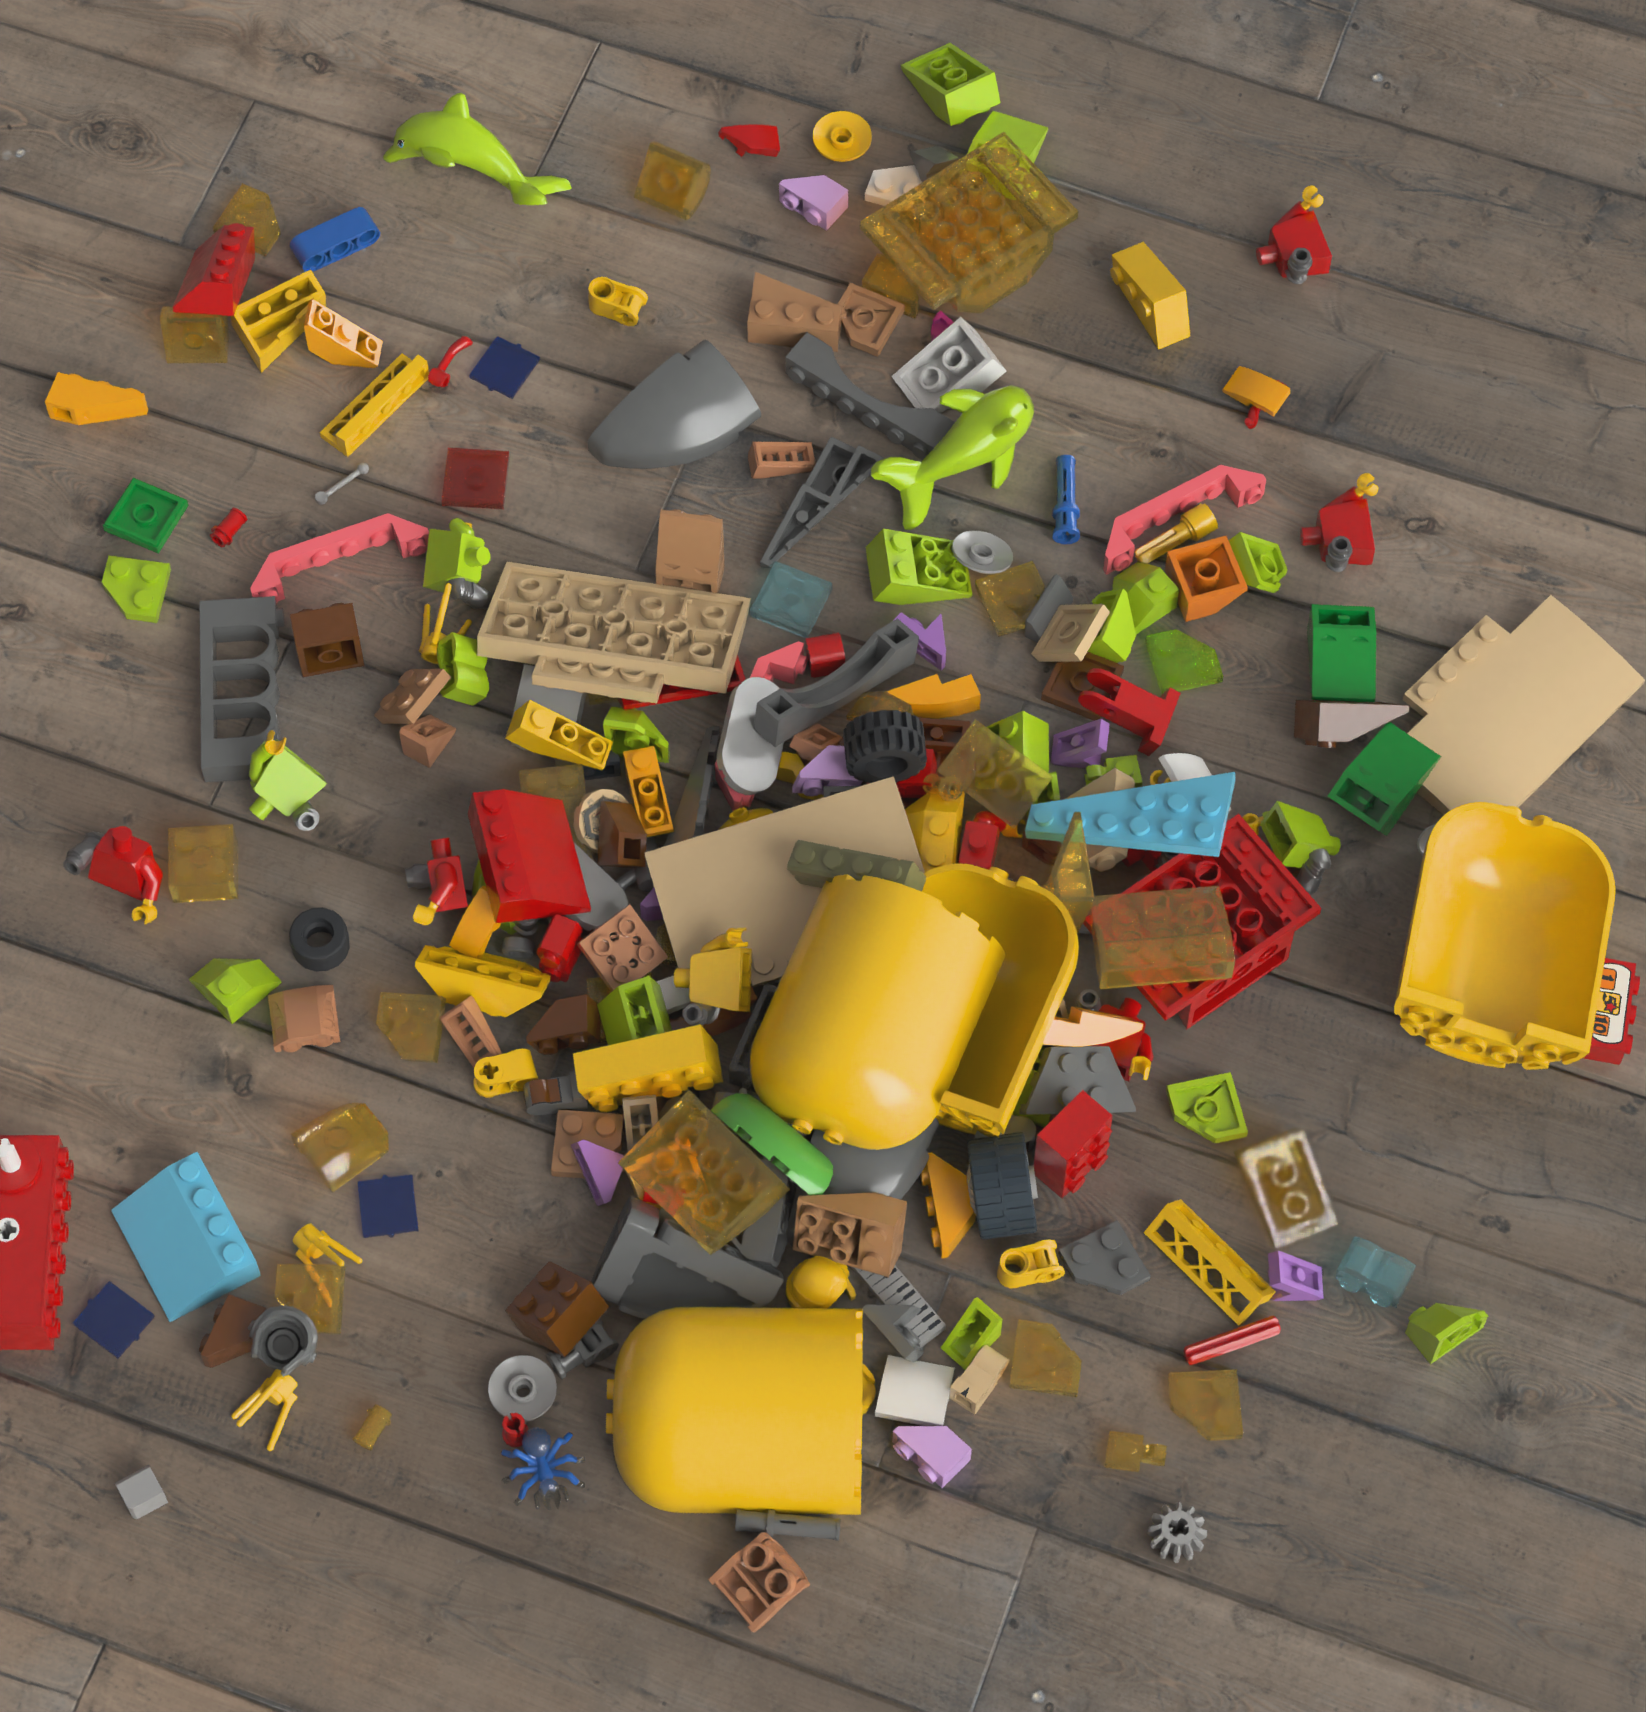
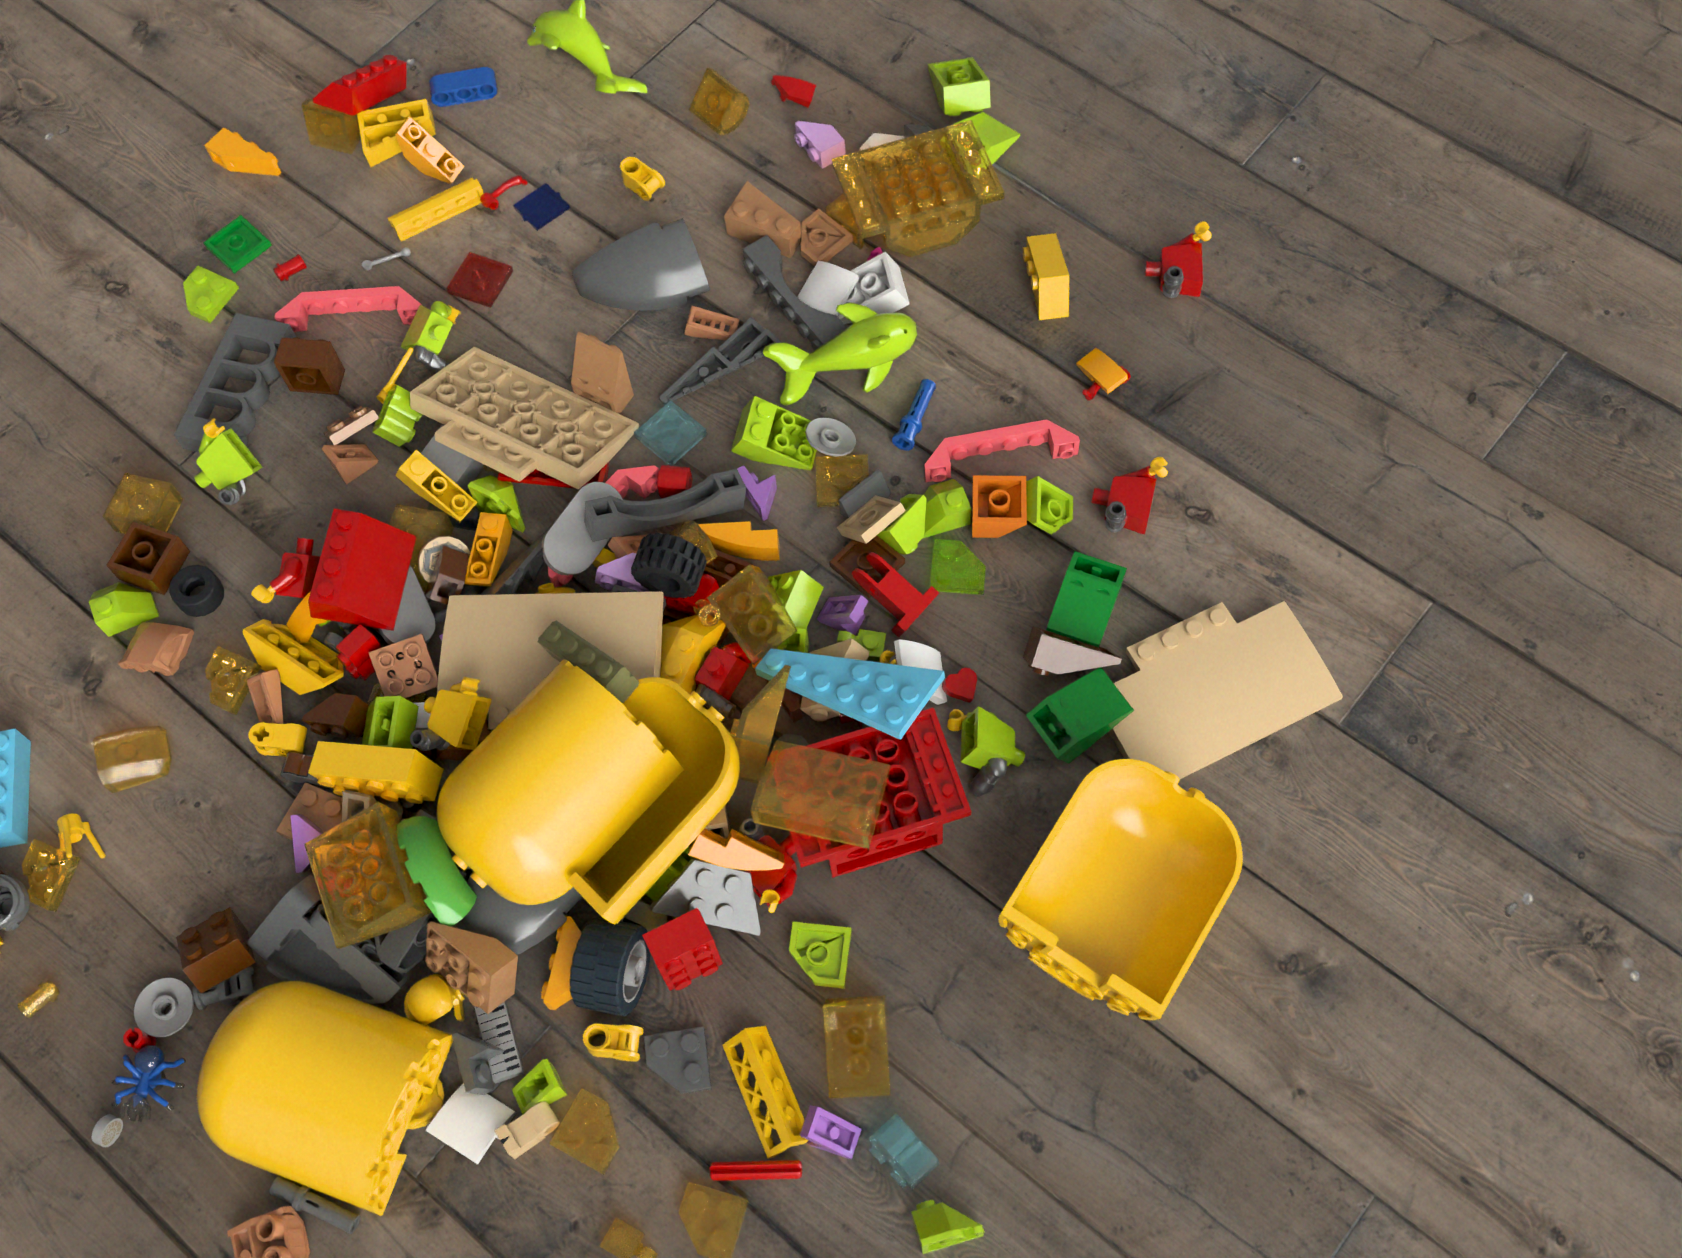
camera: 25 degrees right, 0 degrees up
(121, 864) = (81, 488): red torso -> none
(245, 918) = (148, 558): none -> reddish brown brick
(252, 210) = (419, 59): clear yellow plate -> none
(388, 1206) = (145, 818): clear blue piece -> none
(524, 1528) = (107, 1130): none -> light grey tile
(842, 127) = (860, 102): yellow dish -> none
(904, 376) = (828, 287): none -> white slope
(933, 1449) = (461, 1182): lavender slope -> none
(1193, 525) = (1009, 462): yellow piece -> none
(1245, 786) = (961, 685): none -> red tile
(1614, 1012) = (1204, 981): brick -> none

